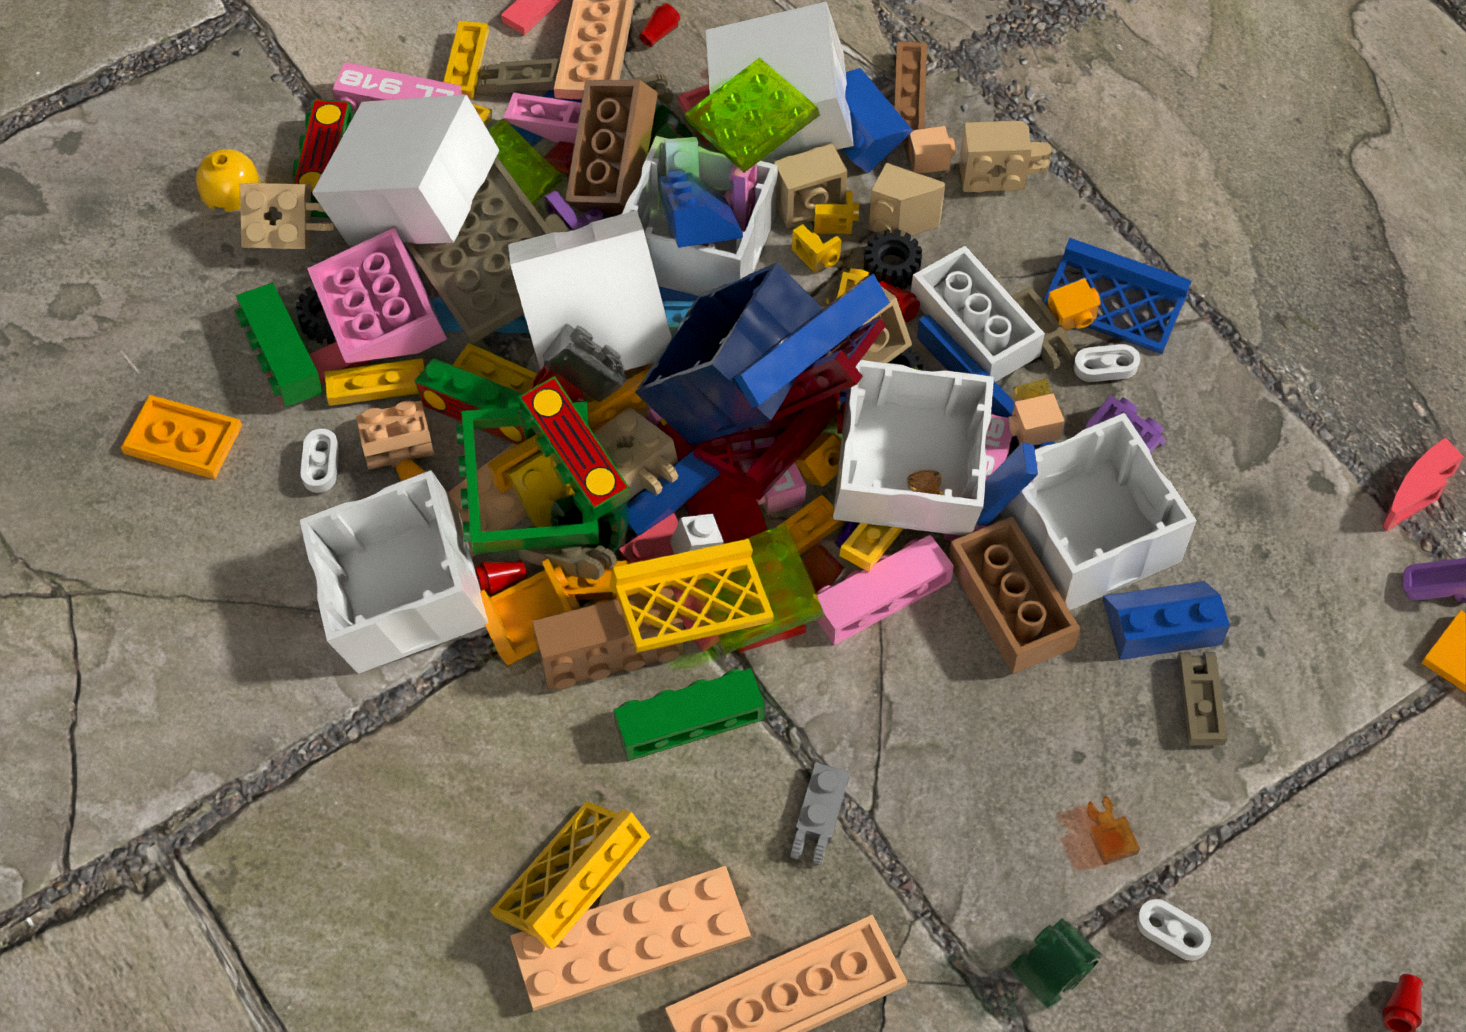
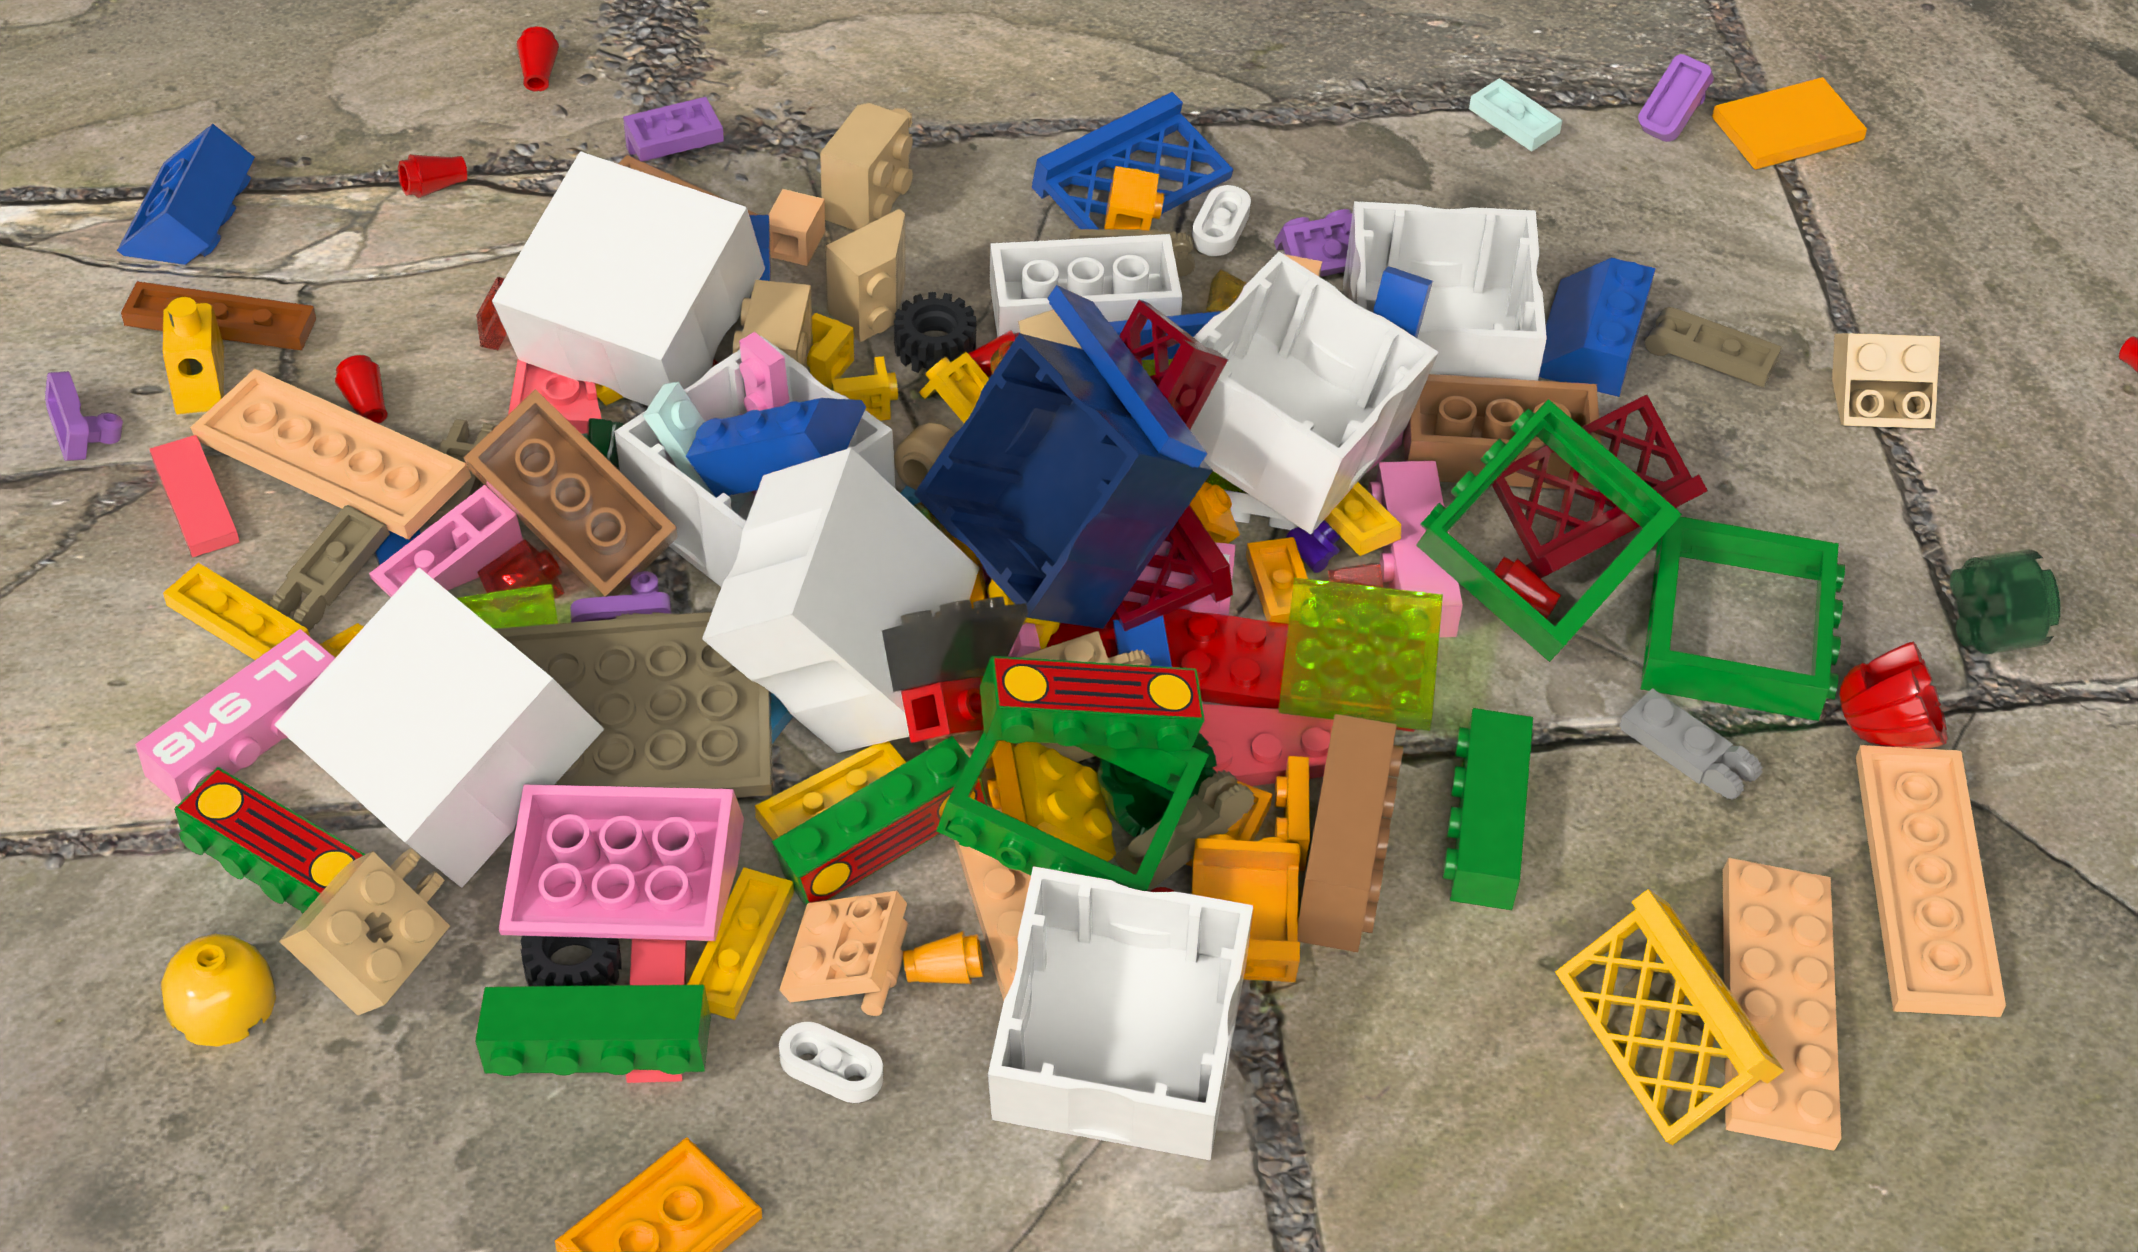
camera: 65 degrees left, 10 degrees down
(676, 571) = (1324, 702): yellow fence -> none
(695, 533) = (1253, 683): white brick -> none
(752, 114) = (700, 299): clear neon green plate -> none
(889, 662) = (1528, 585): none -> red cone
(912, 586) = (1597, 467): none -> green window
(922, 925) = (1893, 701): none -> red hair
(925, 482) = (1339, 409): clear orange wheel -> none
(934, 749) = (1733, 681): none -> green window
(961, 52) = (672, 129): none -> medium lavender bracket
(975, 693) = (1602, 527): none -> dark red fence
(1111, 836) = (1850, 495): clear orange plate -> none
(1174, 928) = (1990, 499): white plate -> none
(1245, 818) = (1886, 379): none -> tan slope
(1348, 489) = (1515, 114): none -> light aqua plate
(1423, 482) = (1545, 58): coral slope -> none

